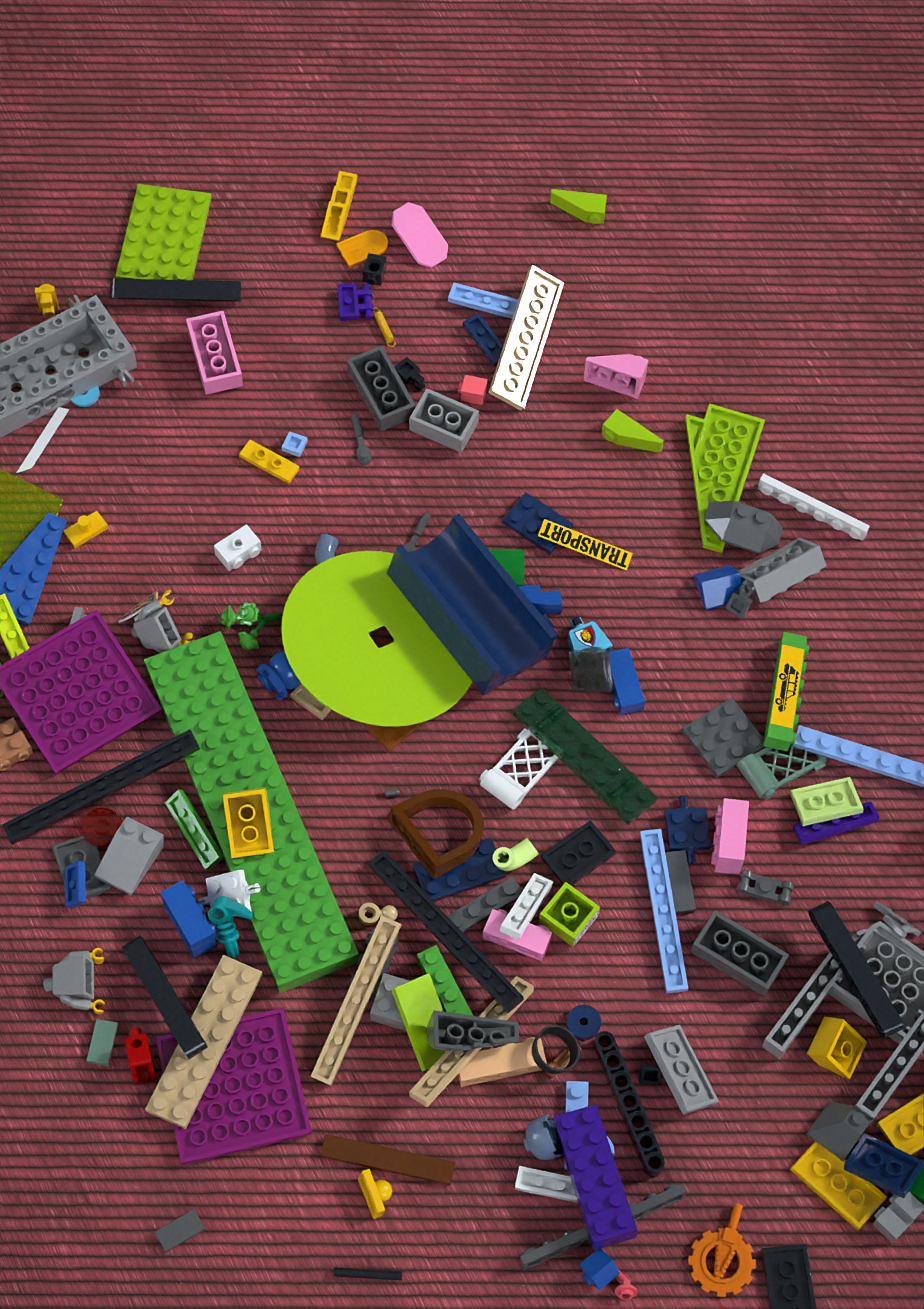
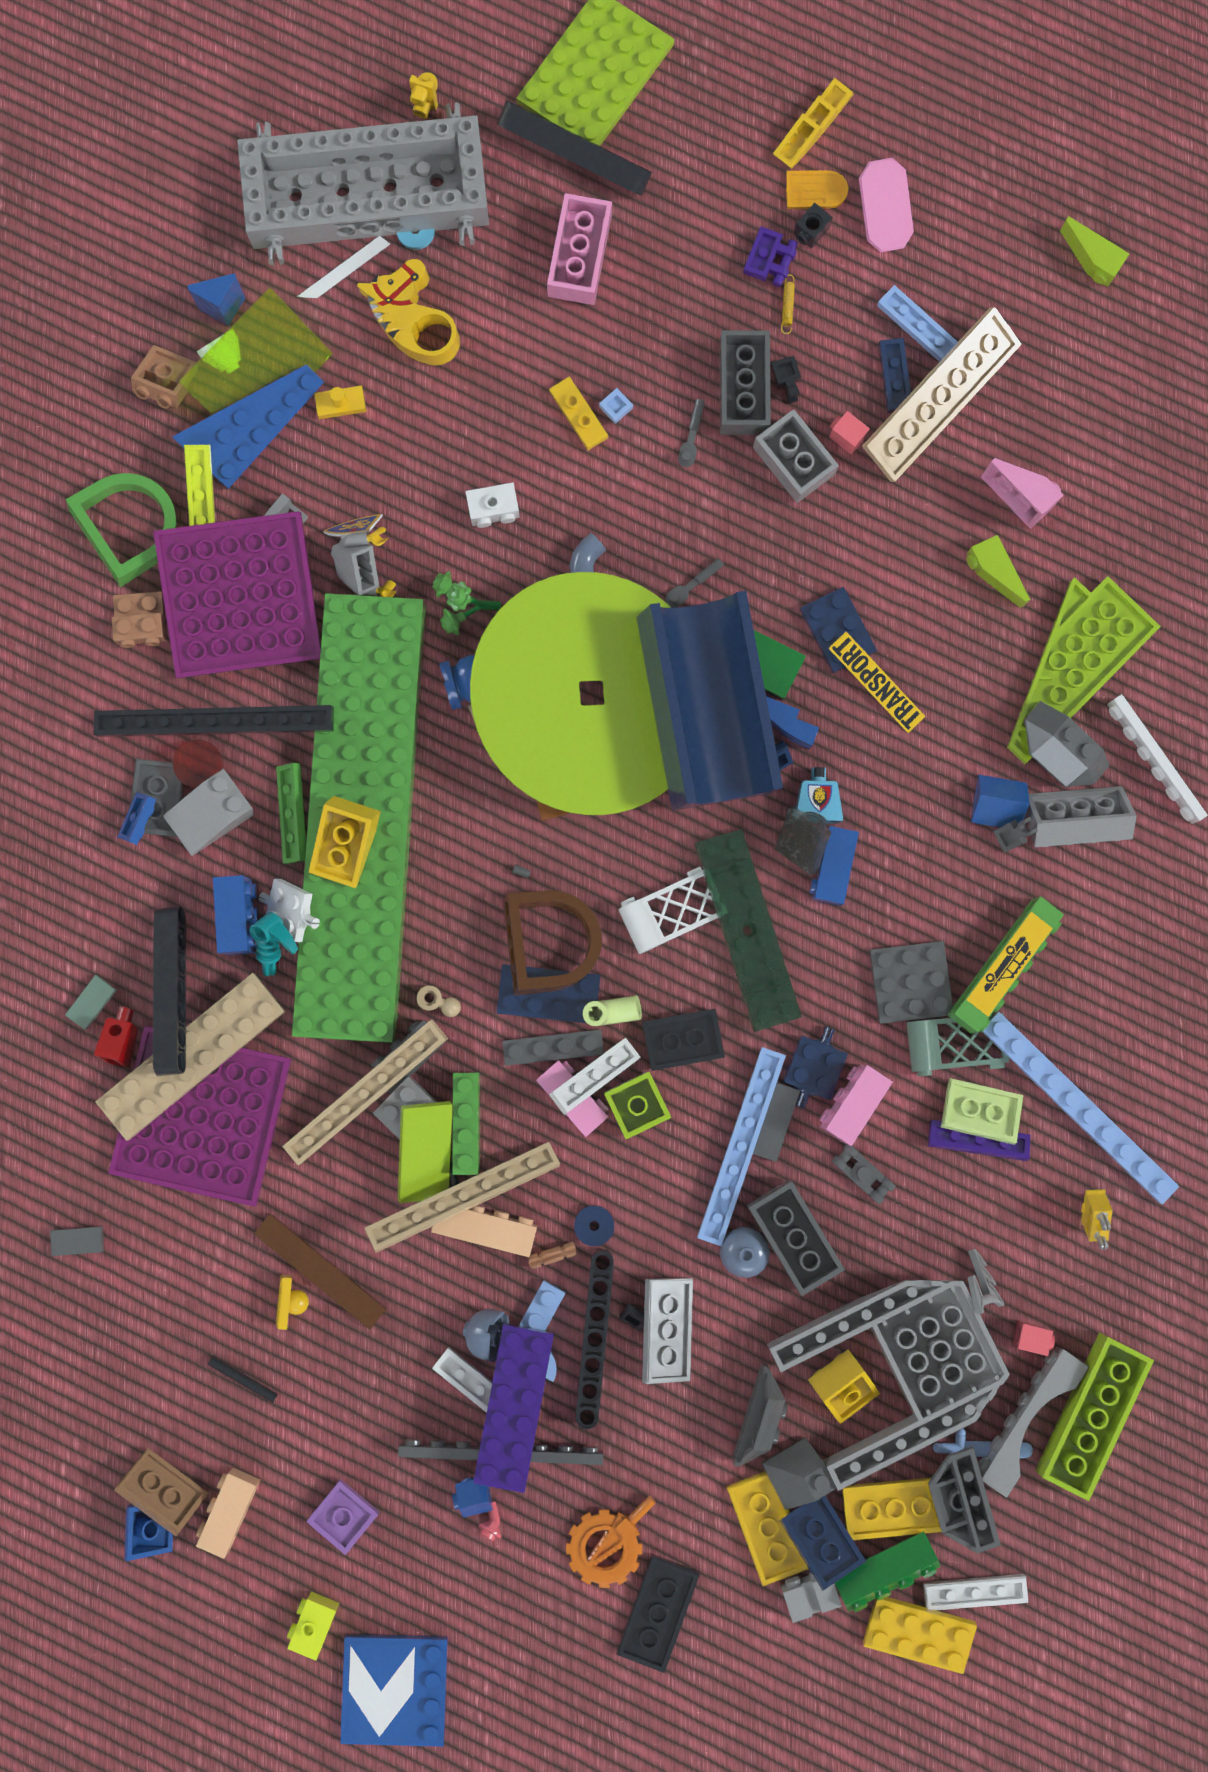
camera: 25 degrees right, 20 degrees up
(75, 980) = (90, 923): light grey torso -> none
(103, 452) = (401, 318): none -> yellow animal
(446, 932) = (497, 1060): black plate -> none
(468, 1032) = (452, 1193): dark grey wedge -> none
(570, 1041) = (562, 1262): black tyre -> none
(708, 986) = (744, 1252): none -> sand blue cylinder
(787, 1098) = (761, 1418): none -> dark grey wedge
(856, 969) = (906, 1325): black beam -> none

